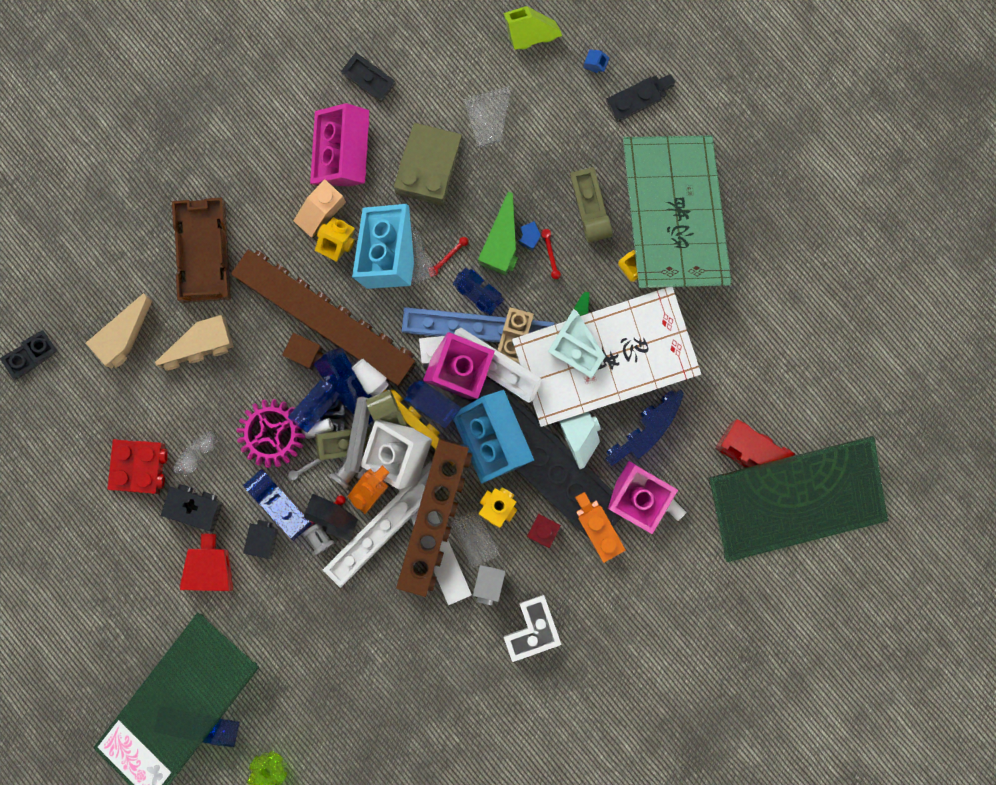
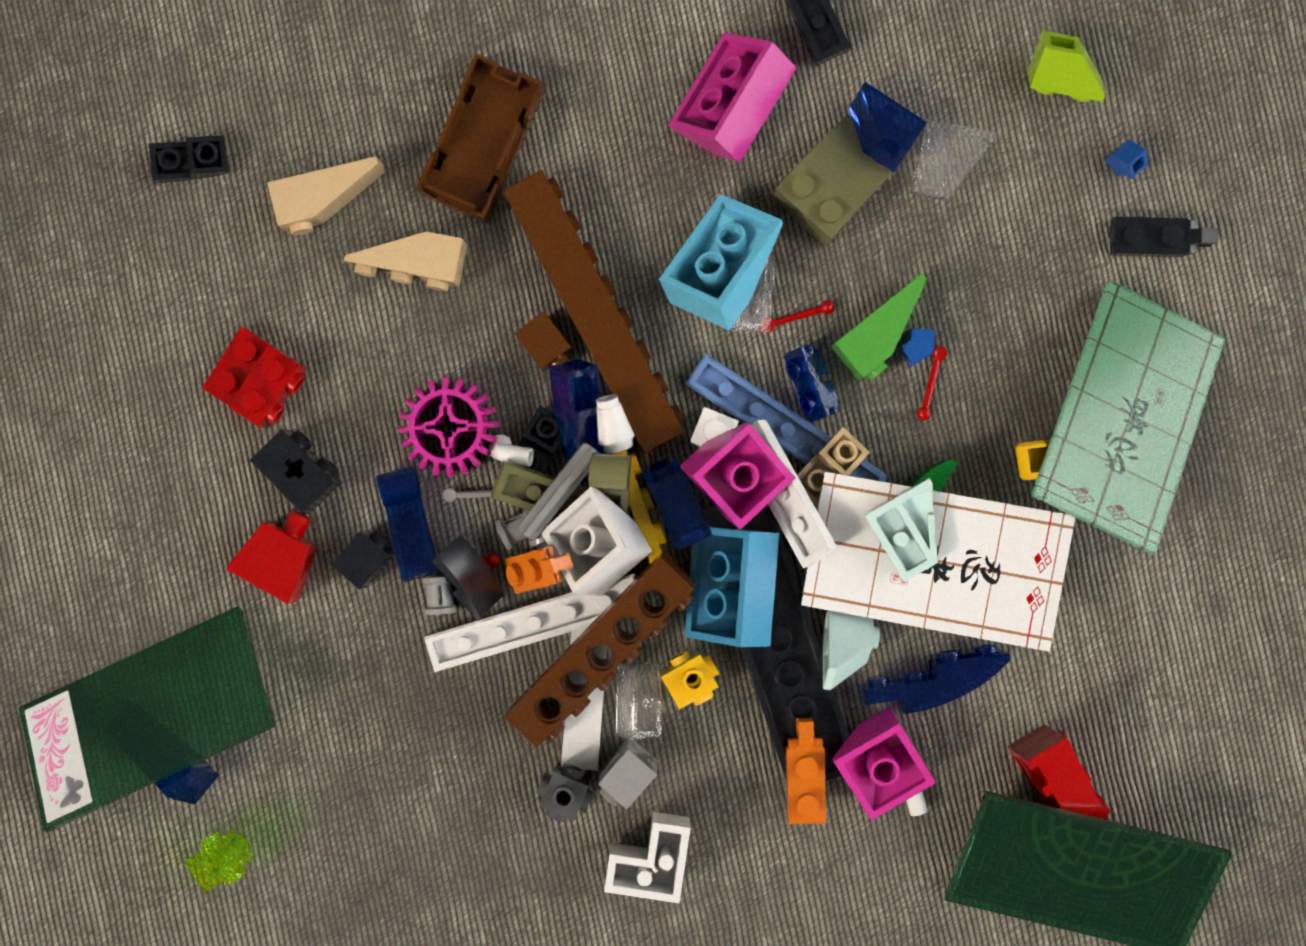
camera: 25 degrees right, 5 degrees up
(190, 459) = (329, 403): clear slope -> none
(314, 405) = (521, 422): clear blue hinge -> none
(319, 208) = (663, 164): light nougat slope -> none
(335, 239) = (662, 216): yellow brick -> none
(440, 117) = (884, 126): none -> clear blue slope
(462, 608) = (568, 779): none -> dark grey brick
(543, 531) = (732, 740): dark red brick -> none
(590, 205) = (1018, 348): olive plate -> none

